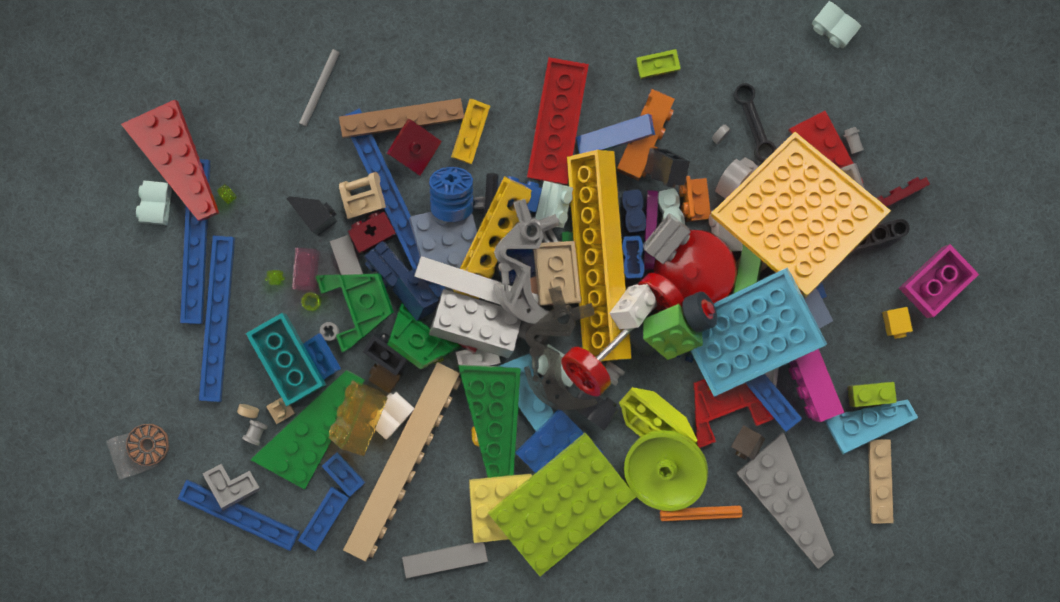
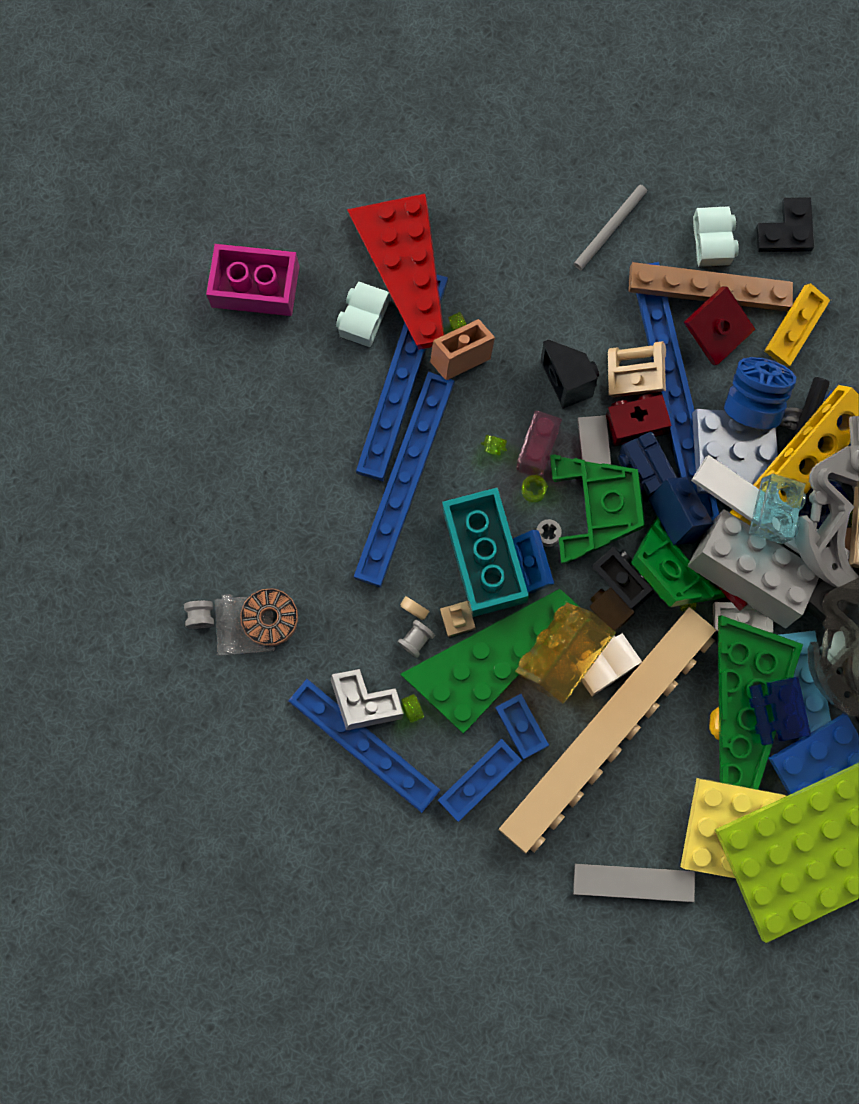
camera: 20 degrees right, 10 degrees down
(65, 199) = (253, 279): none -> dark pink brick
(97, 455) = (199, 614): none -> light grey wheel
(232, 214) = (462, 349): none -> nougat brick
(264, 481) = (412, 708): none -> clear neon green axle
(395, 77) = (714, 236): none -> light aqua brick
(454, 58) = (794, 233): none -> black plate
(471, 282) = (770, 505): none -> clear light blue brick
(520, 417) = (787, 708): none -> clear blue plate

